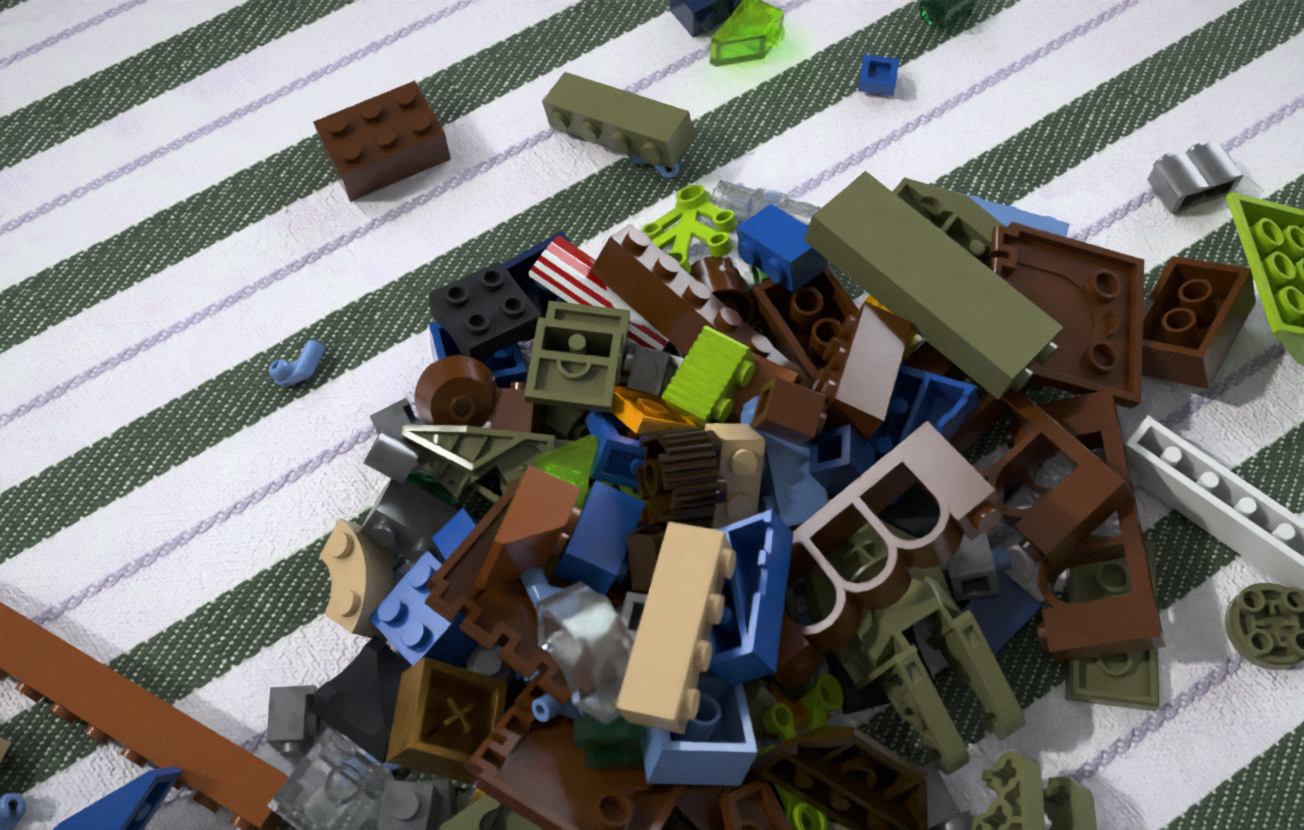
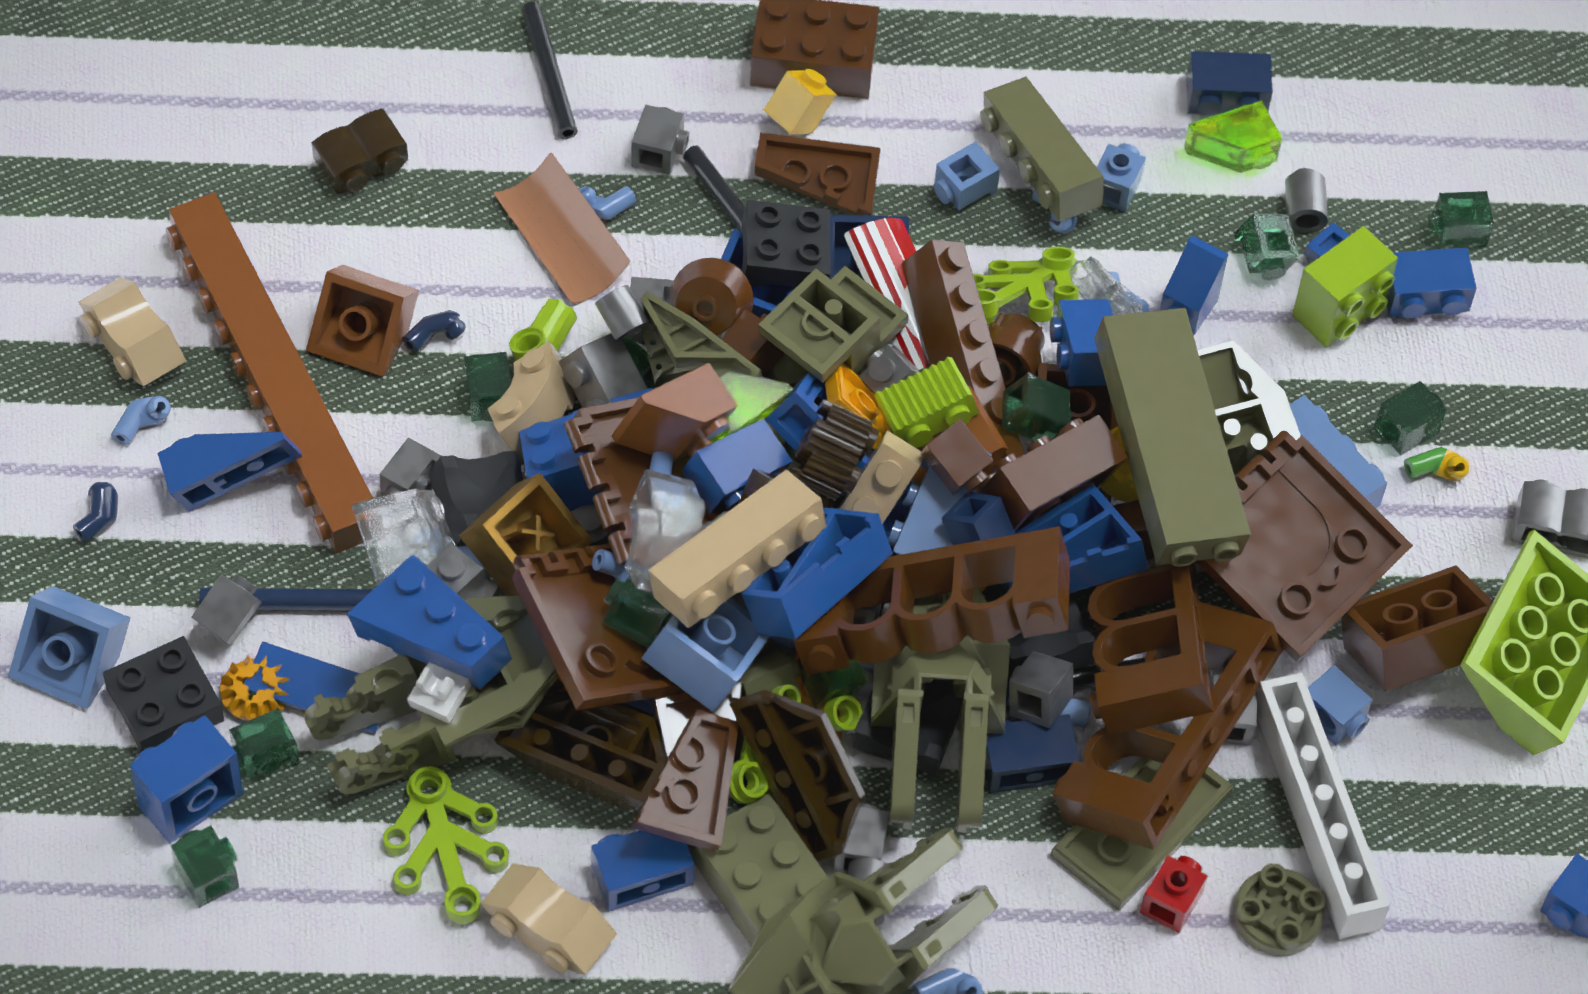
camera: 30 degrees right, 5 degrees down
(55, 446) = (360, 151): none -> dark brown brick
(152, 598) = (361, 319): none -> dark orange slope
(177, 282) = (549, 70): none -> black piece
(220, 562) = (432, 324): none -> dark blue arm
(281, 409) = (564, 231): none -> nougat sticker
(306, 587) = (486, 382): none -> clear green brick
(309, 285) = (659, 139): none -> flat silver brick
(326, 505) = (550, 324): none -> lime piece
(385, 297) = (715, 184): none -> black piece
(403, 189) = (800, 101): none -> yellow brick
(458, 235) = (822, 170): none -> reddish brown wing
(571, 181) = (966, 176): none -> medium blue brick
(689, 98) = (1121, 170): none -> medium blue brick
(790, 326) = (1035, 408): none -> clear green brick
(810, 157) = (1196, 281): none -> blue slope
(831, 50) = (1306, 200): none -> flat silver brick
(833, 97) = (1268, 244): none -> clear green brick
(919, 94) = (1345, 287): none -> lime brick
(962, 60) = (1432, 283): none -> blue brick
(1034, 165) = (1410, 417): none -> clear green brick
(1078, 186) = (1439, 462): none -> arm
(1180, 416) = (1340, 705): none -> medium blue brick
(1182, 676) = (1174, 904): none -> red brick

